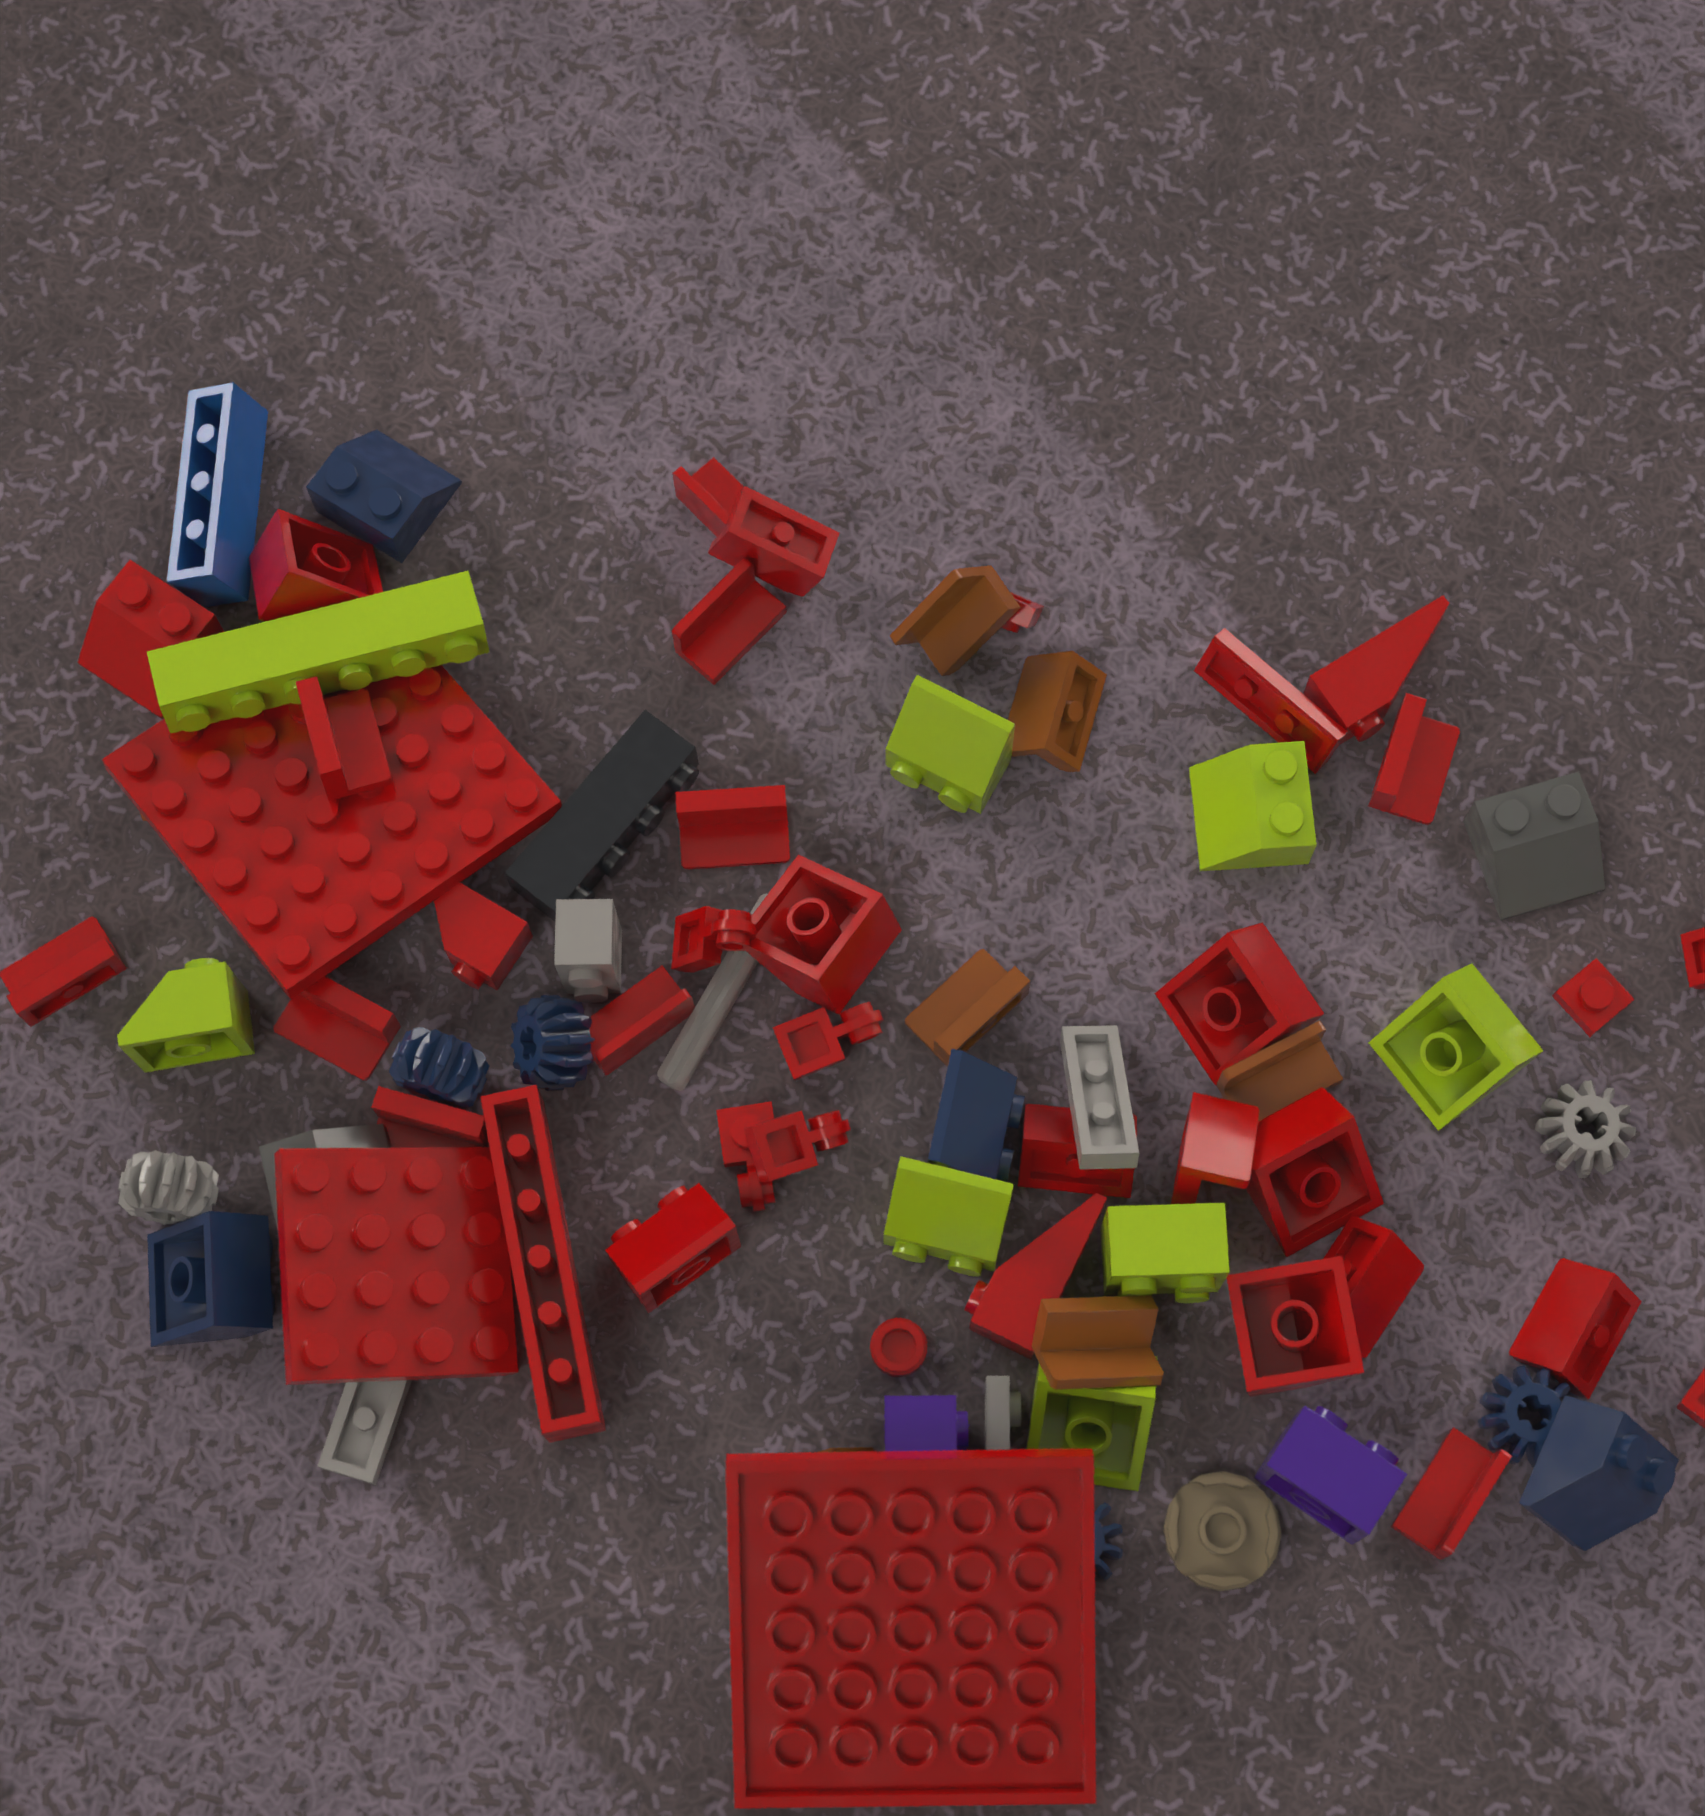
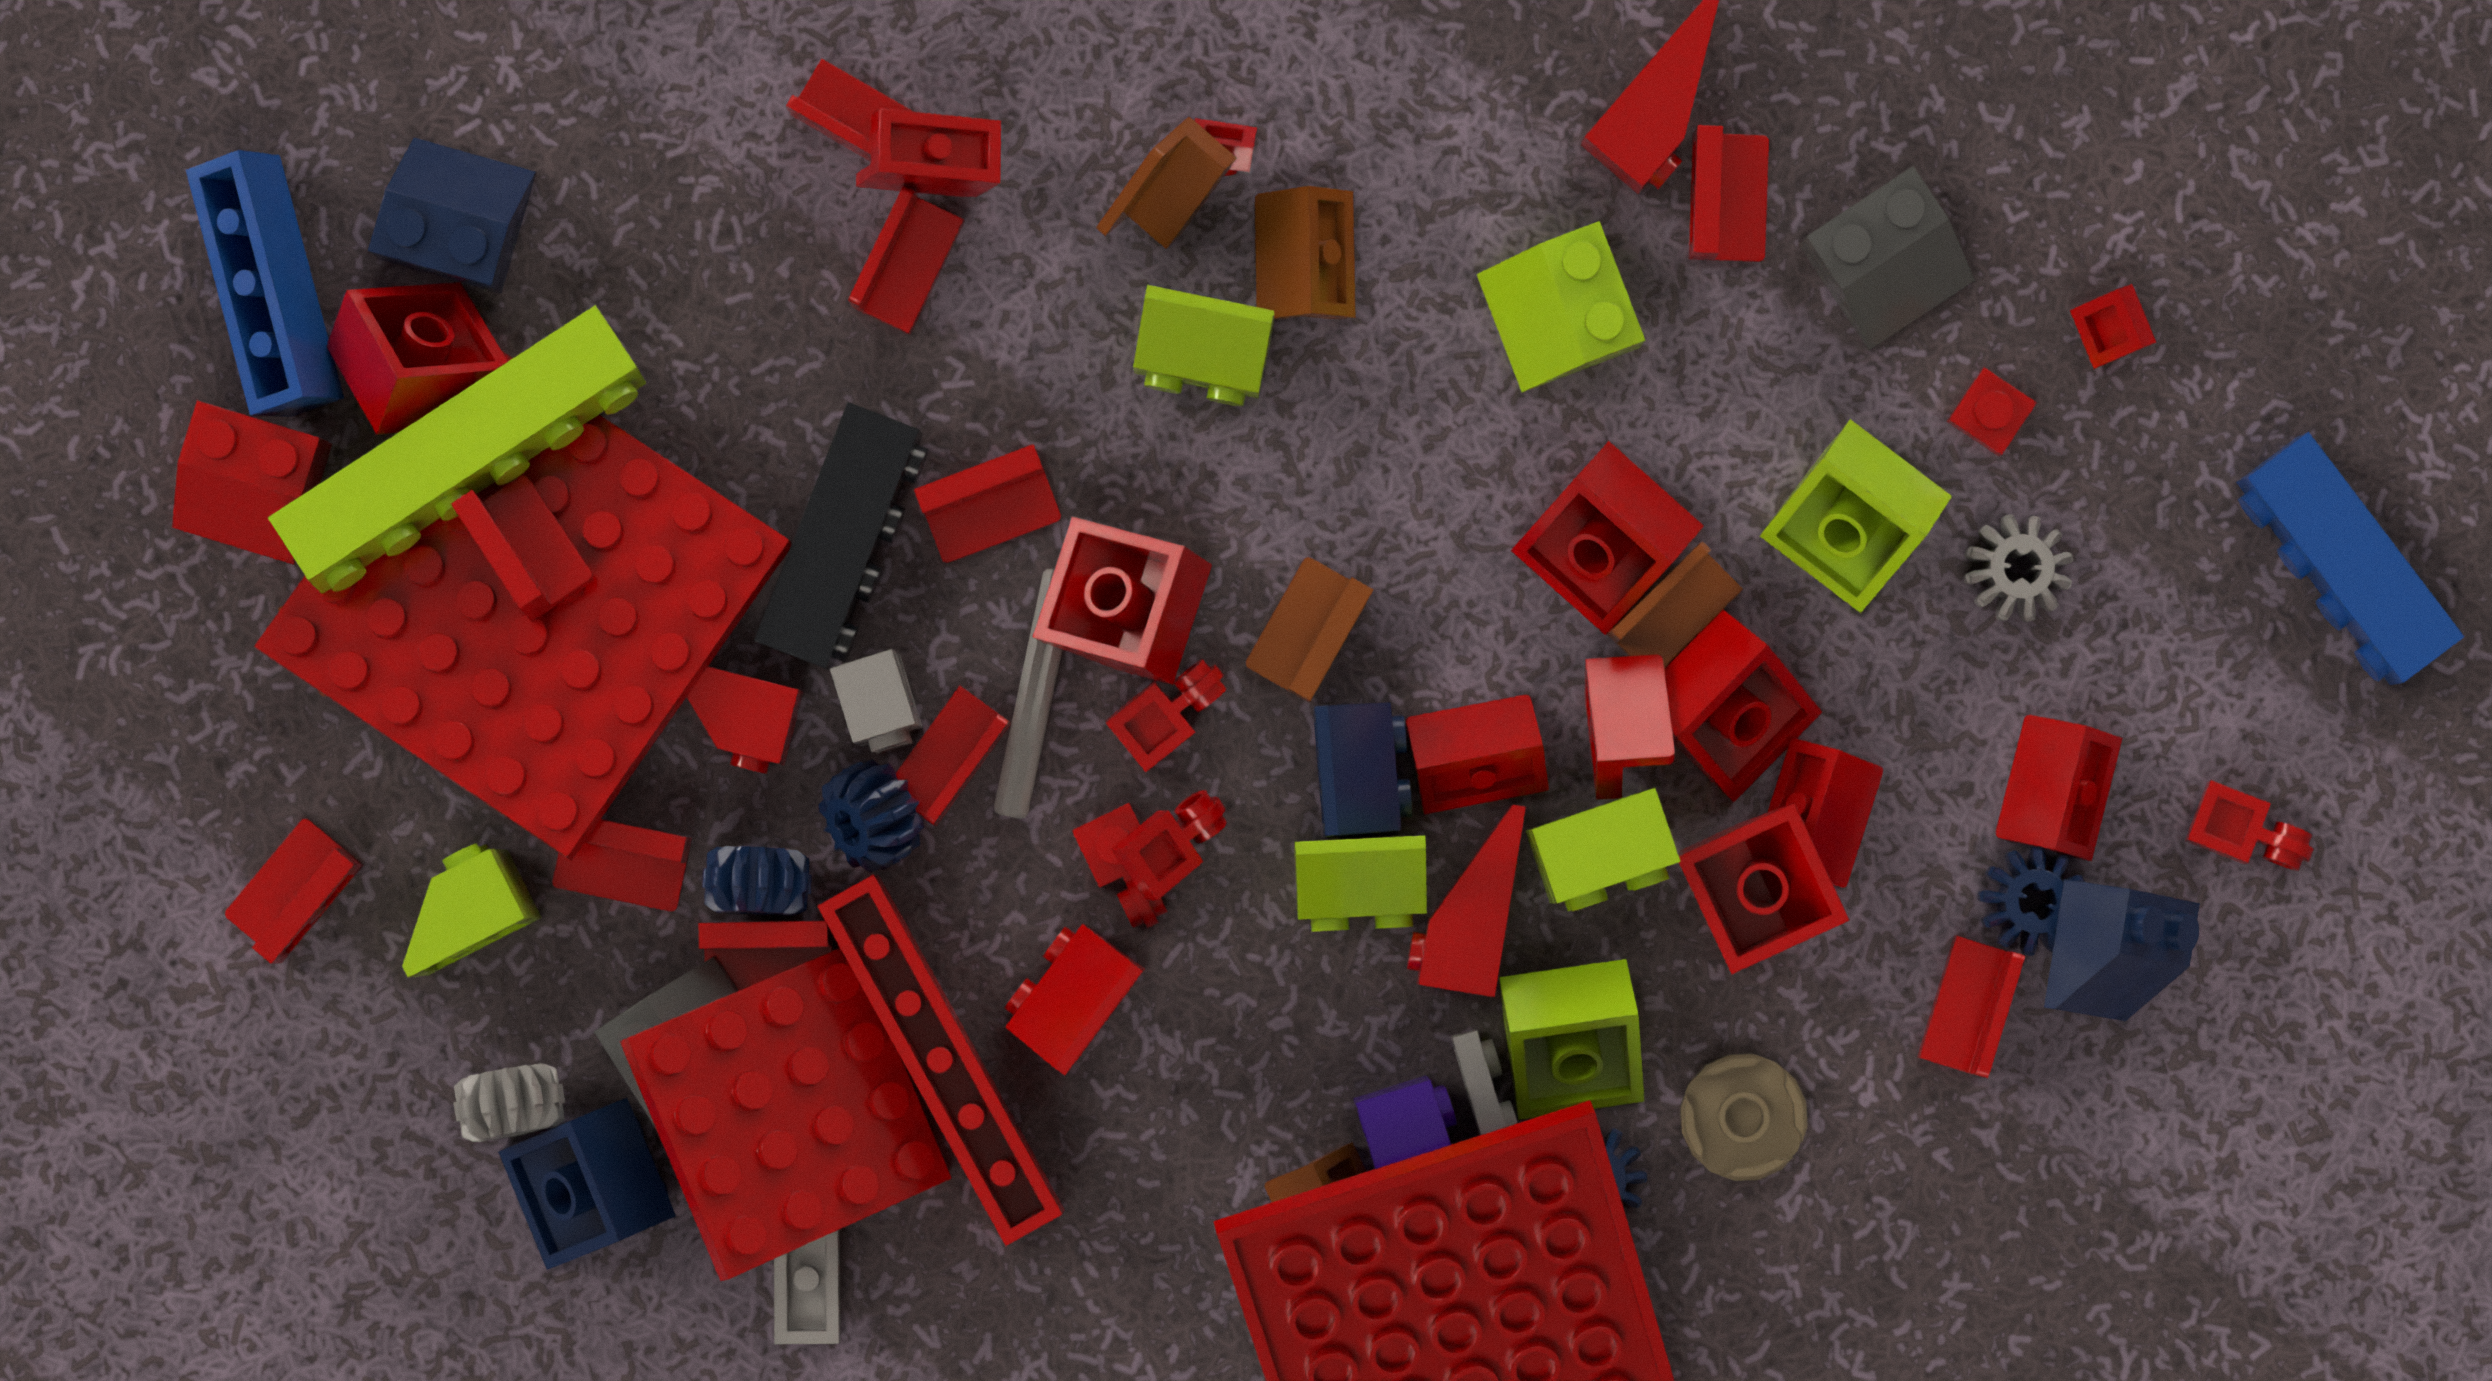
camera: 20 degrees left, 15 degrees up
(704, 935) = (998, 641): red plate -> none
(898, 1347) = (1347, 1027): red tile -> none
(1097, 1342) = (1561, 972): dark orange panel -> none
(1099, 1097) = (1485, 697): light grey plate -> none
(1269, 698) = (1546, 172): red tile -> none
(1331, 1473) = (1840, 1033): dark purple brick -> none

